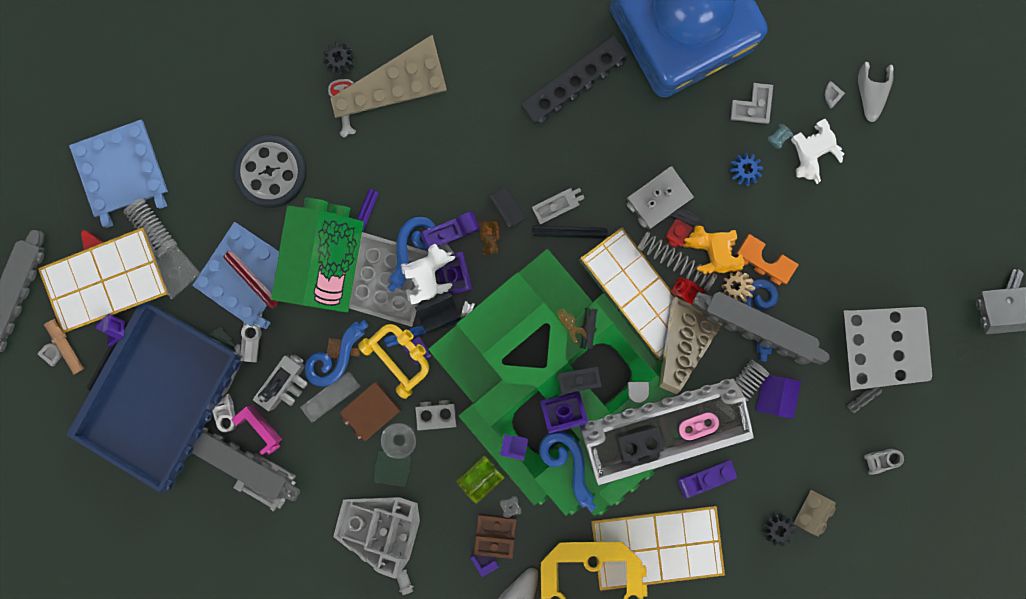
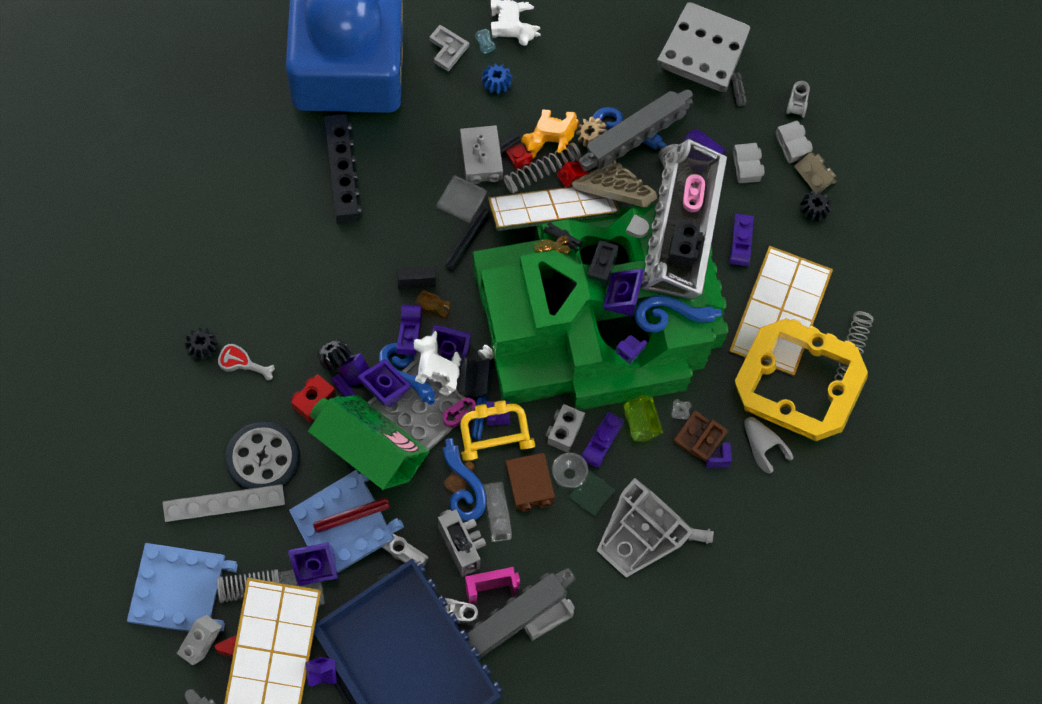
camera: 70 degrees left, 20 degrees down
(81, 215) = (199, 639): none -> light grey brick
(193, 272) = (313, 563): none -> dark purple slope
(210, 163) = (223, 503): none -> light grey plate
(331, 183) = (315, 386): none -> red brick
(383, 239) = (384, 383): none -> dark purple slope
(389, 204) = (353, 368): none -> dark purple panel
(390, 179) = (334, 354): none -> black gear
(399, 313) = (457, 408): none -> magenta beam
(404, 78) = (252, 304): dark tan wing -> none
(444, 453) = (602, 439): none -> dark purple plate
(557, 205) = (438, 236): light grey hinge -> none
(605, 205) = (462, 198): none -> clear plate
(779, 271) = (596, 97): orange arch -> none
(789, 446) = (747, 163): none -> light grey brick
(836, 477) = (793, 141): none -> light grey brick

